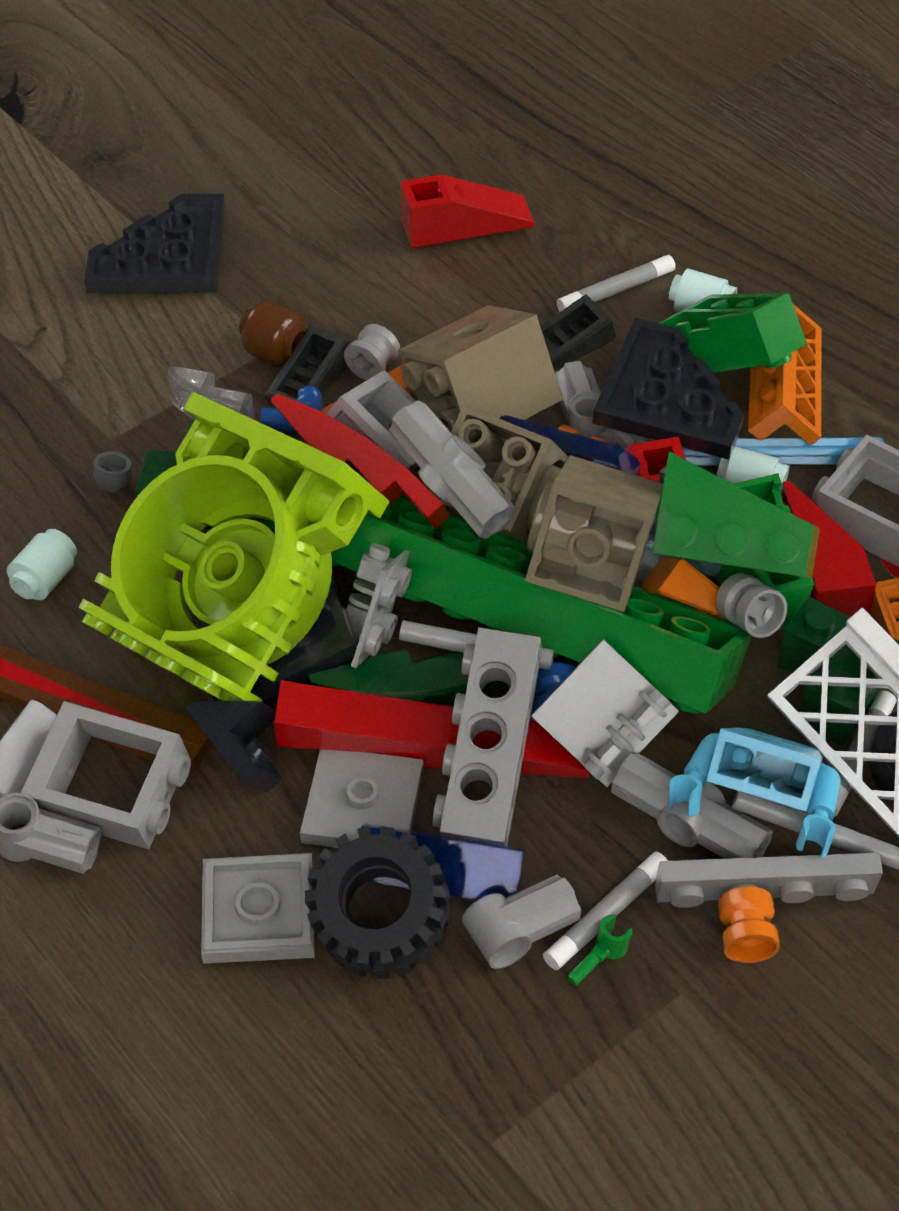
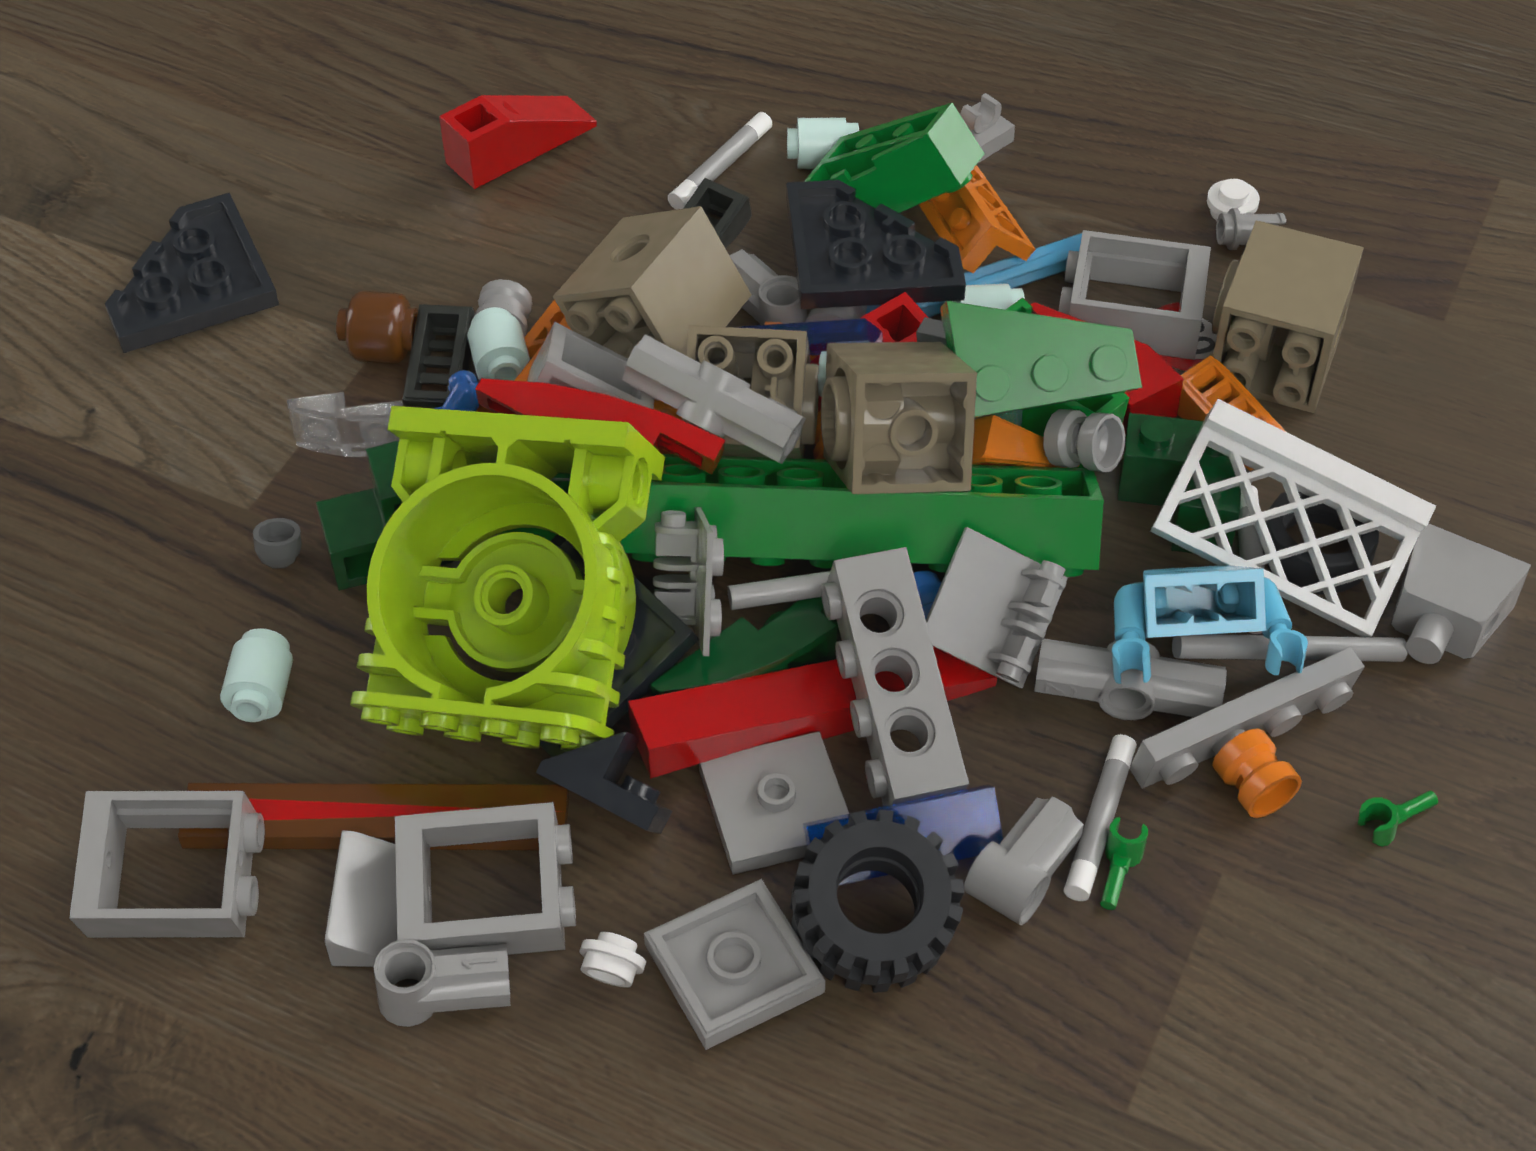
camera: 25 degrees left, 0 degrees up
(170, 868) = (611, 959): none -> white plate
(347, 370) = (497, 345): none -> light aqua brick
(843, 325) = (987, 125): none -> light grey tile
(845, 1004) = (1393, 815): none -> green hand

